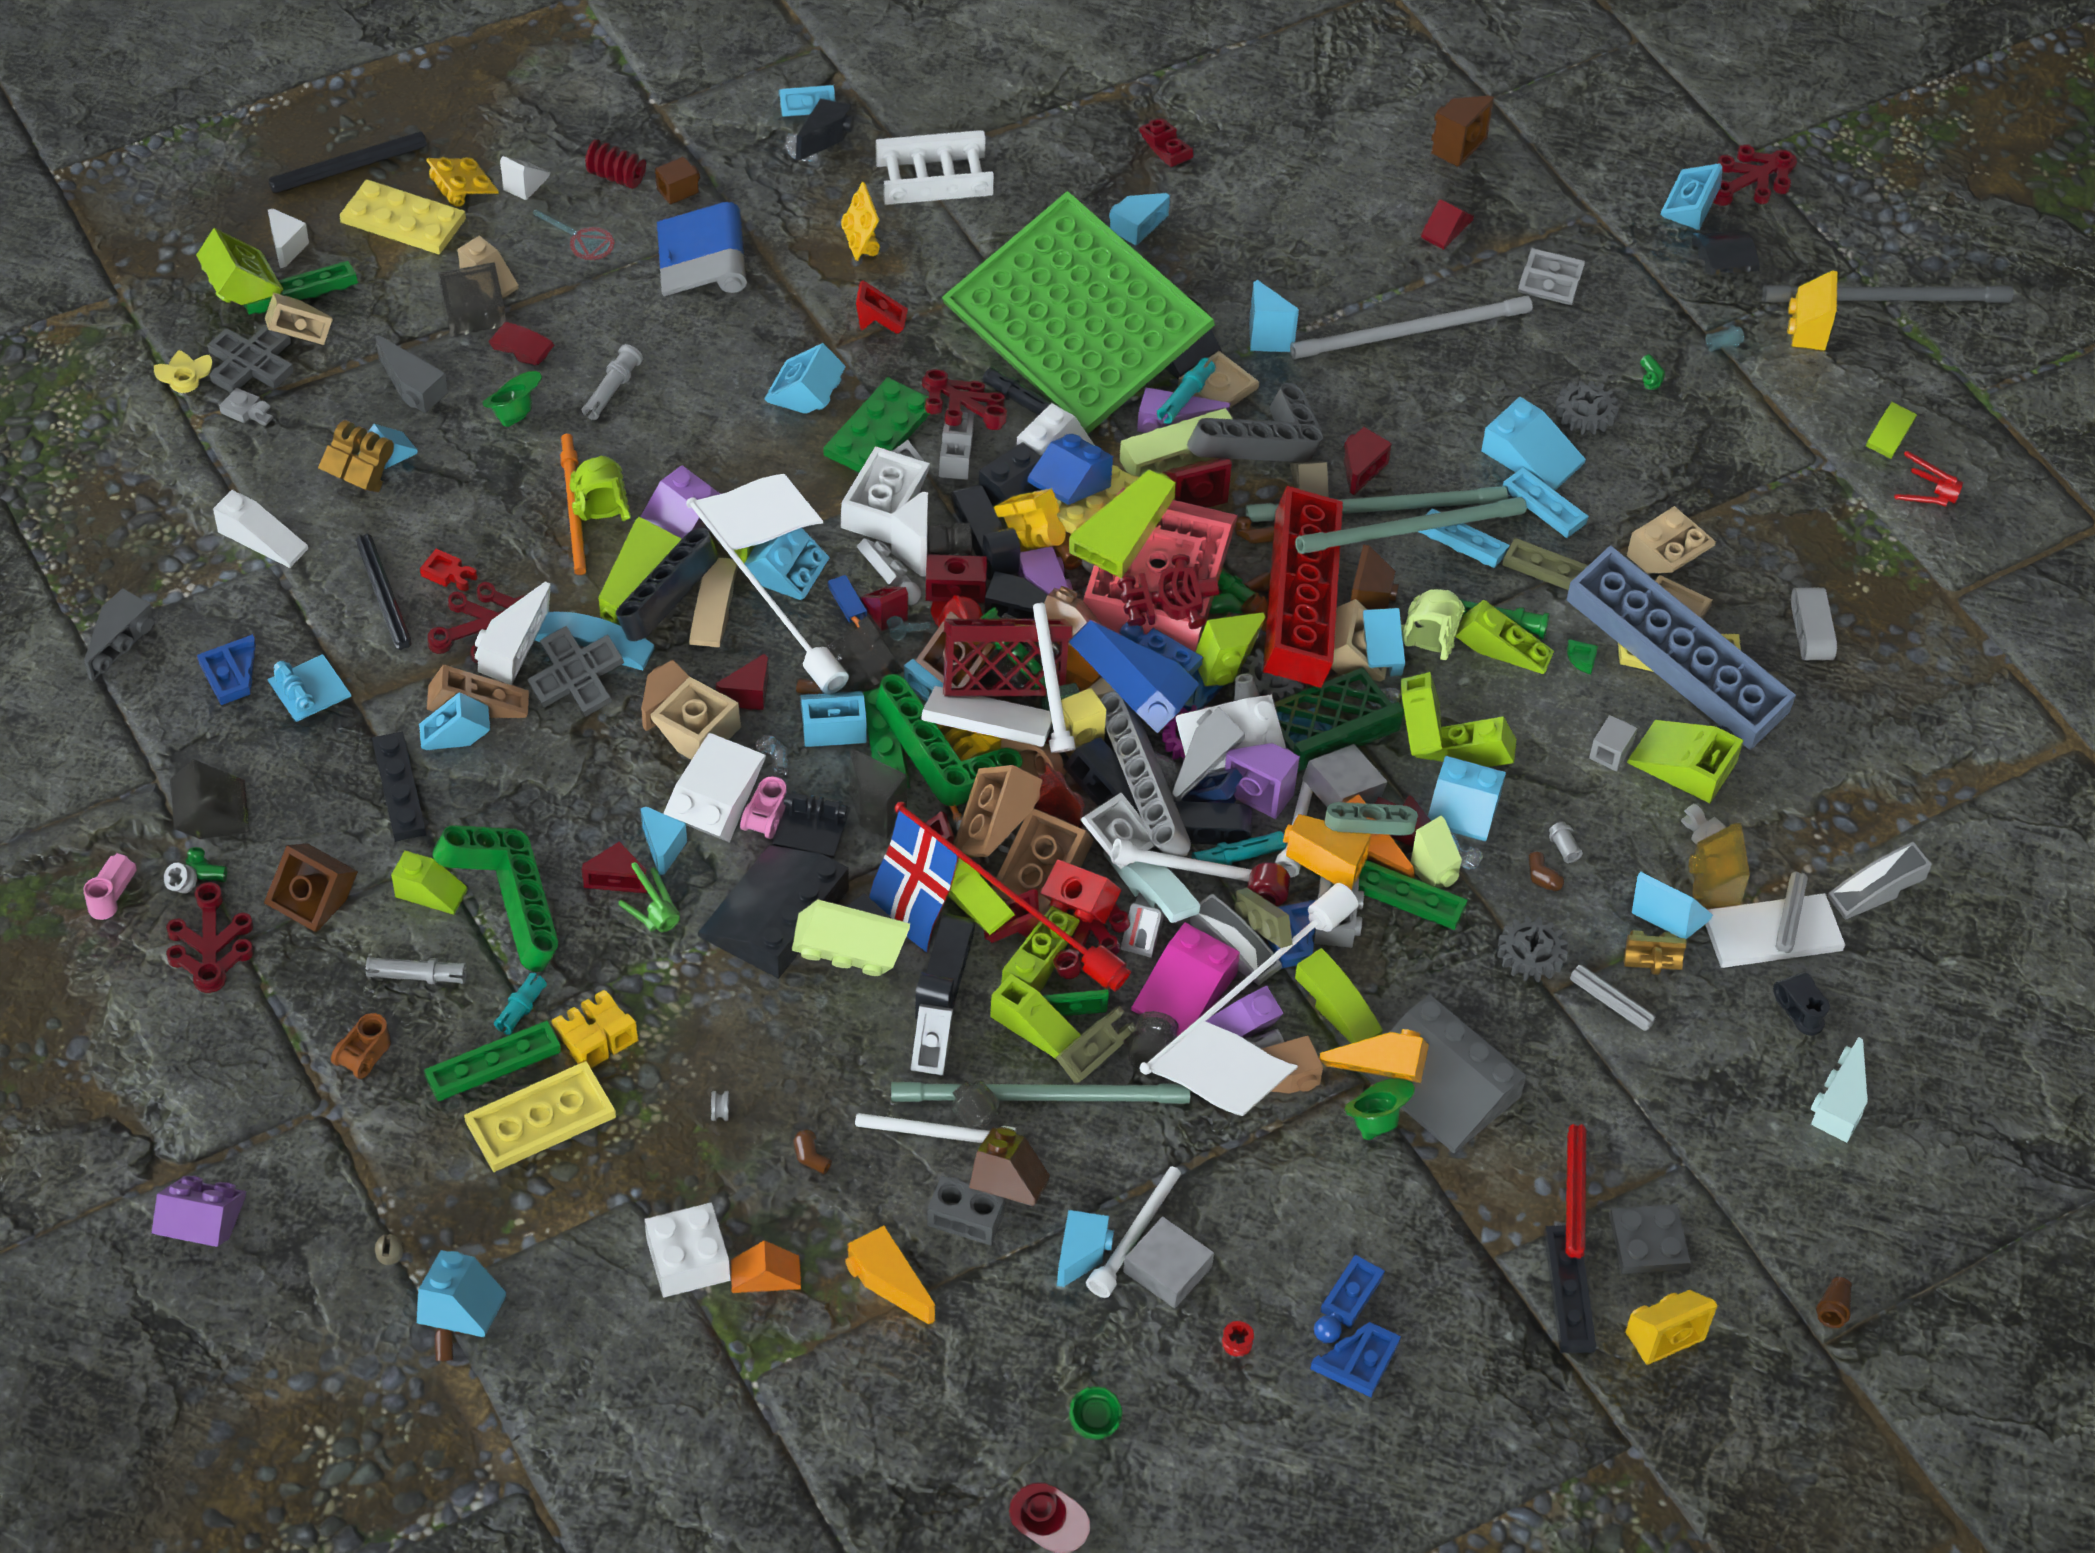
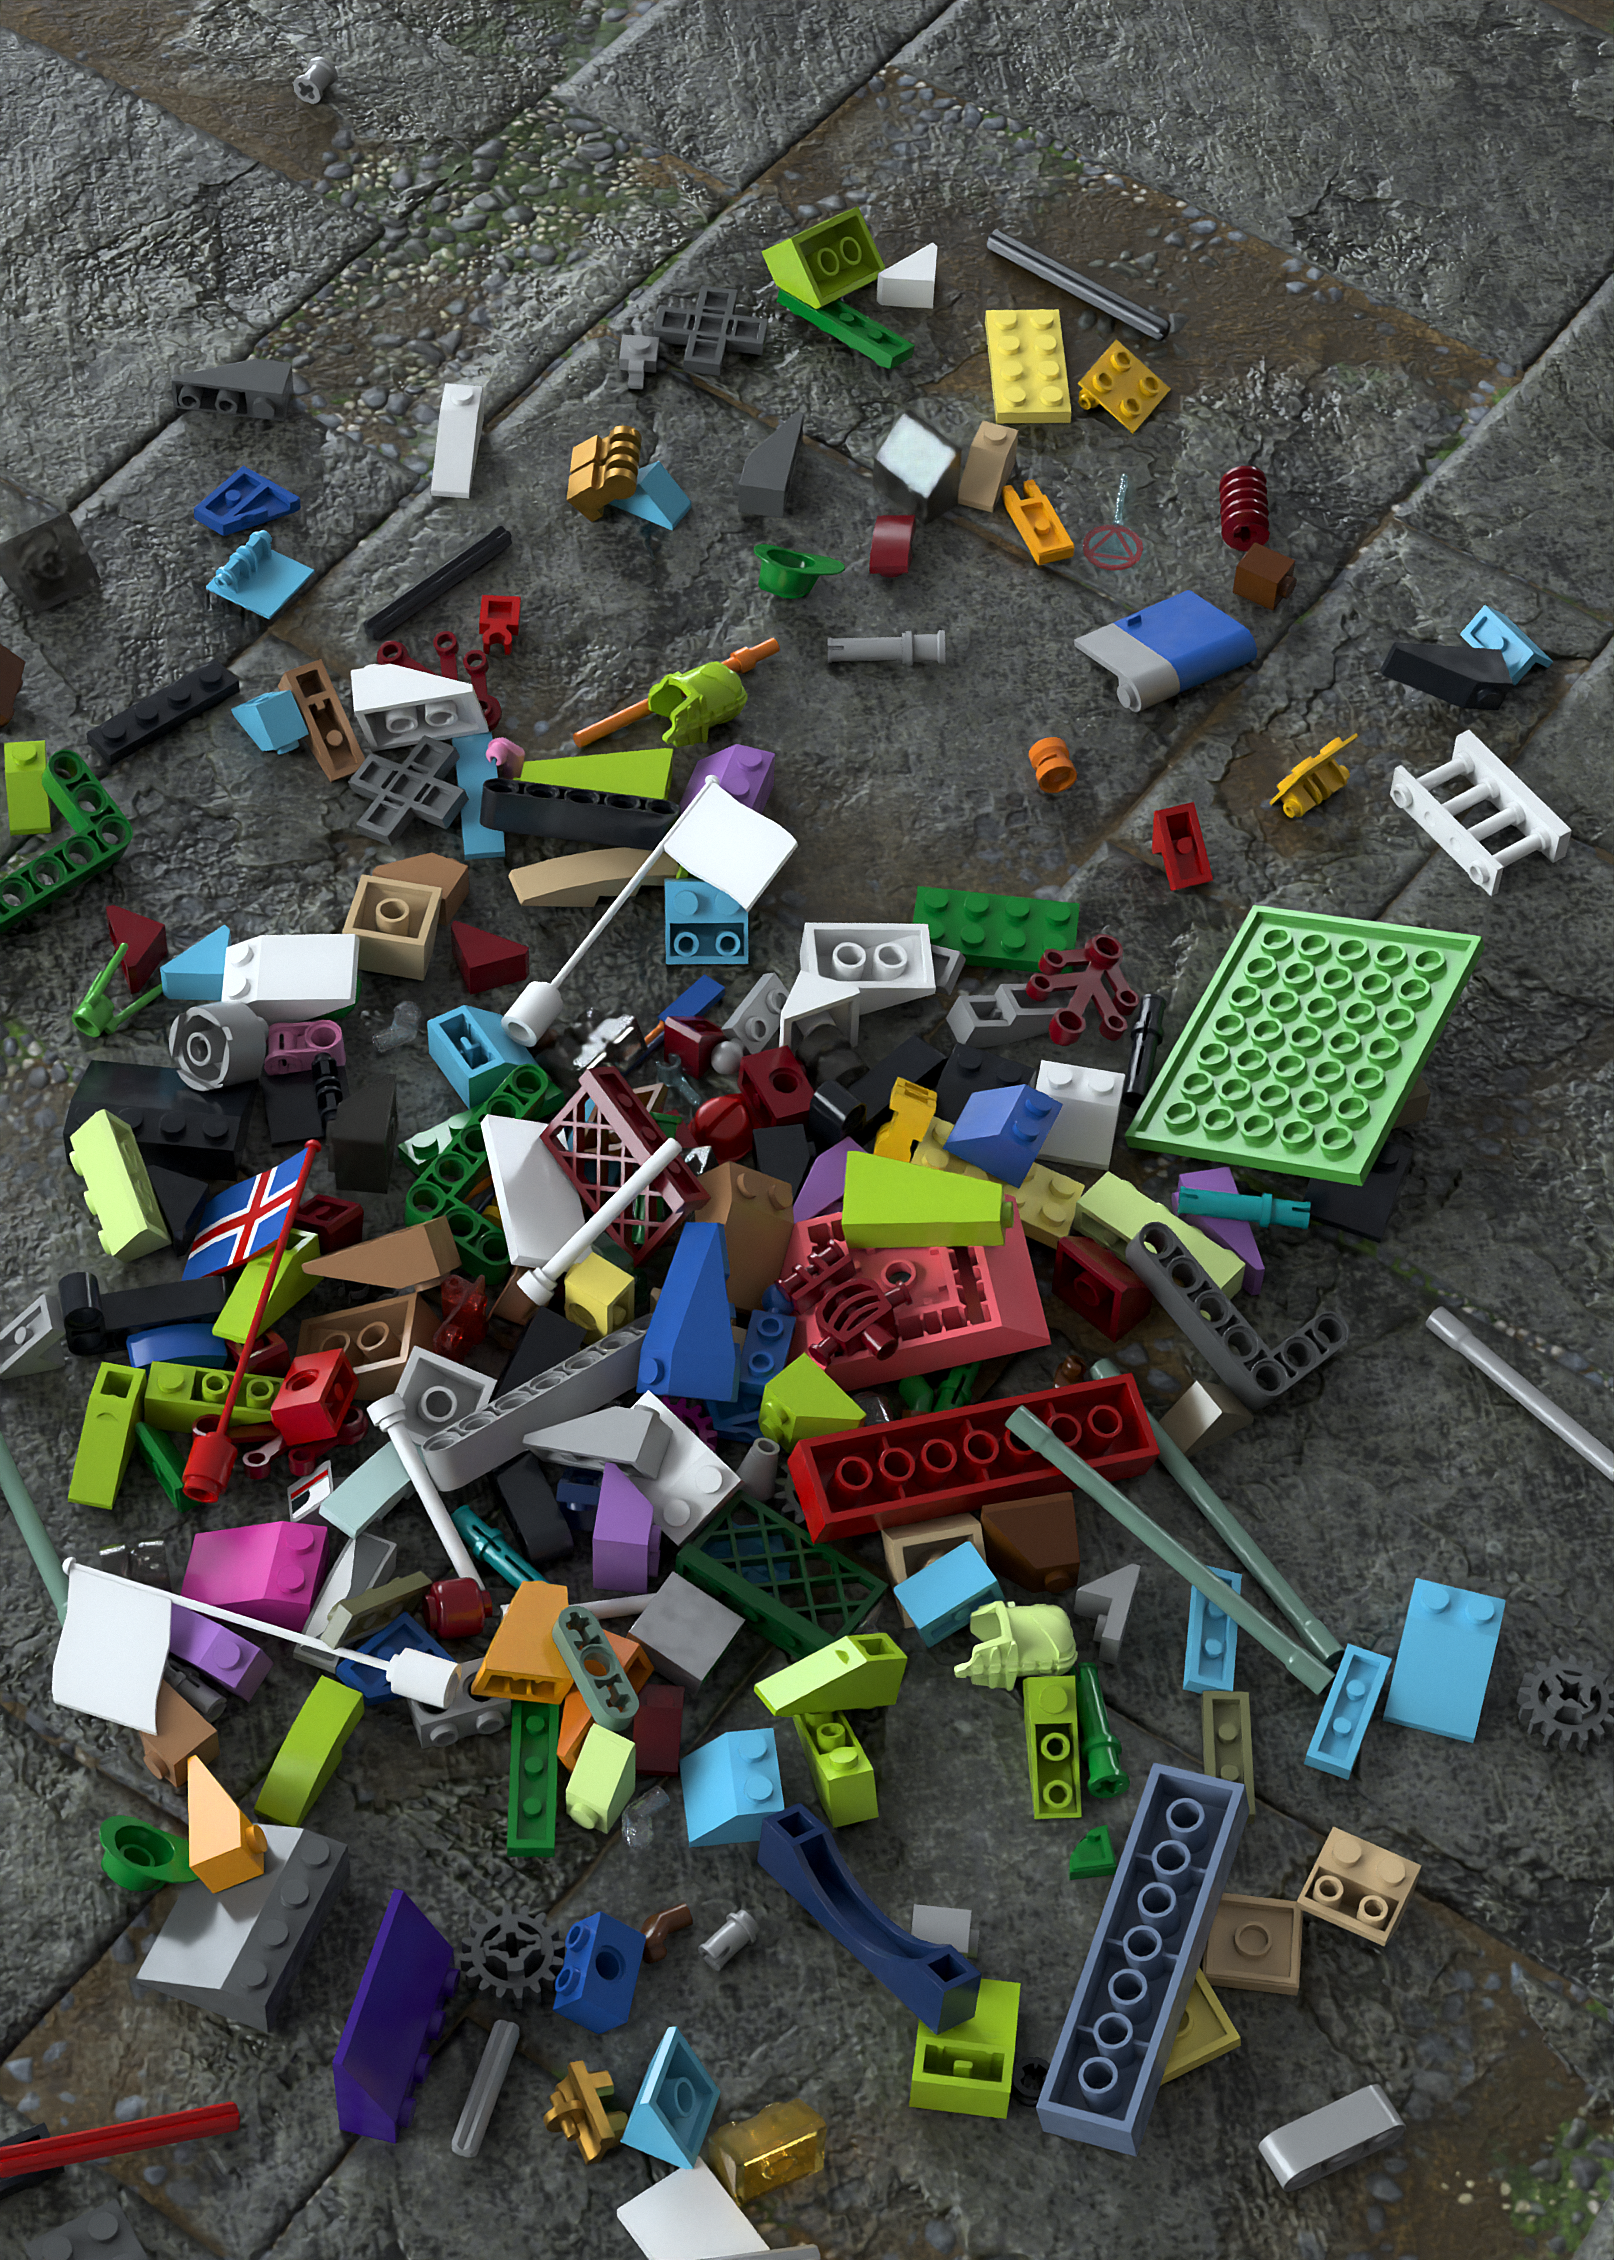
camera: 65 degrees right, 0 degrees up
(183, 372) = (657, 288): light yellow plate -> none
(297, 319) = (786, 336): tan slope -> none
(521, 177) = (1168, 437): white slope -> none
(550, 267) = (1038, 523): none -> light orange hinge
(582, 605) = (508, 754): none -> bright pink arm
(752, 844) = (218, 1044): none -> light grey brick
(767, 342) = (1052, 765): none -> orange wheel
(806, 380) = (1014, 828): medium azure slope -> none
(981, 963) = (177, 1345): none -> blue slope
(1094, 1046) = (98, 1508): olive hinge -> none
(1138, 216) = (1556, 1057): medium azure slope -> none
(1228, 382) = (1320, 1259): tan tile -> none
(1271, 320) = (1444, 1254): medium azure slope -> none
(1364, 458) = (1278, 1463): dark red slope -> none
(1426, 572) = (1110, 1603): none -> light grey slope
(1563, 1020) = (393, 2023): none -> dark purple slope
(1568, 907) = (599, 1973): none -> blue brick
(1659, 743) = (924, 1975): none -> dark blue arch
(1699, 825) = (850, 2122): light grey plate -> none

